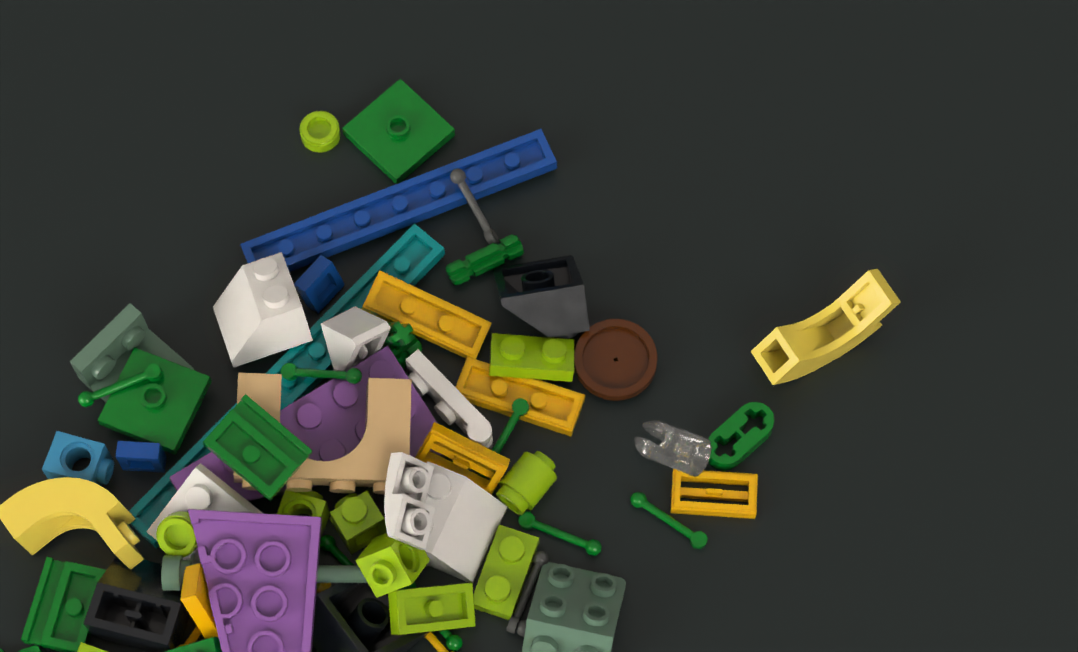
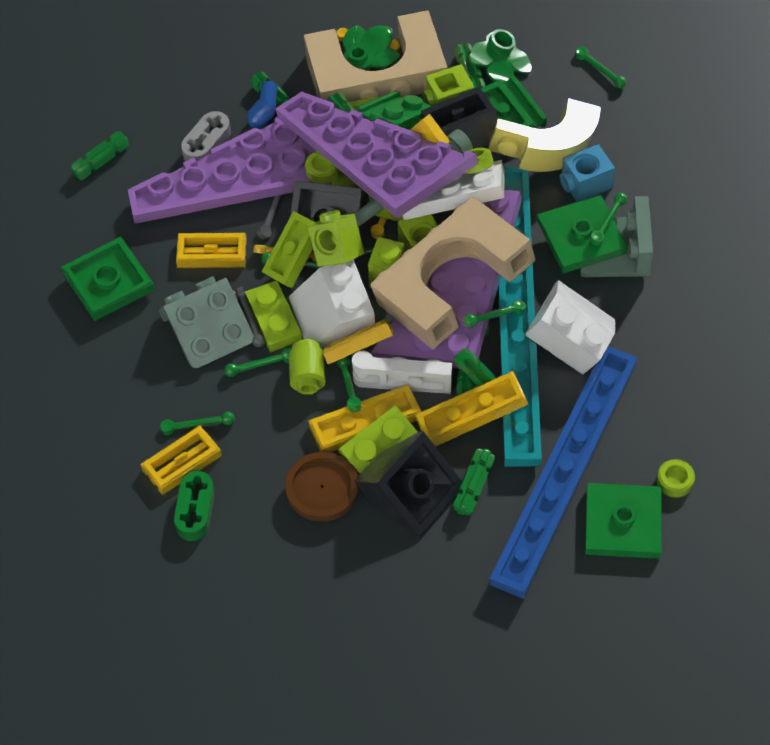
camera: 140 degrees right, 10 degrees down
(141, 456) = (555, 198): blue tile -> none
(257, 447) = (470, 209): green plate -> none
(319, 284) = (561, 375): blue tile -> none
(353, 337) = (496, 342): white slope -> none
(406, 492) = (356, 262): white slope -> none
(458, 177) = (487, 501): dark grey hinge -> none
(678, 448) = (230, 455): clear piece -> none
(818, 340) = (192, 602): light yellow arch -> none

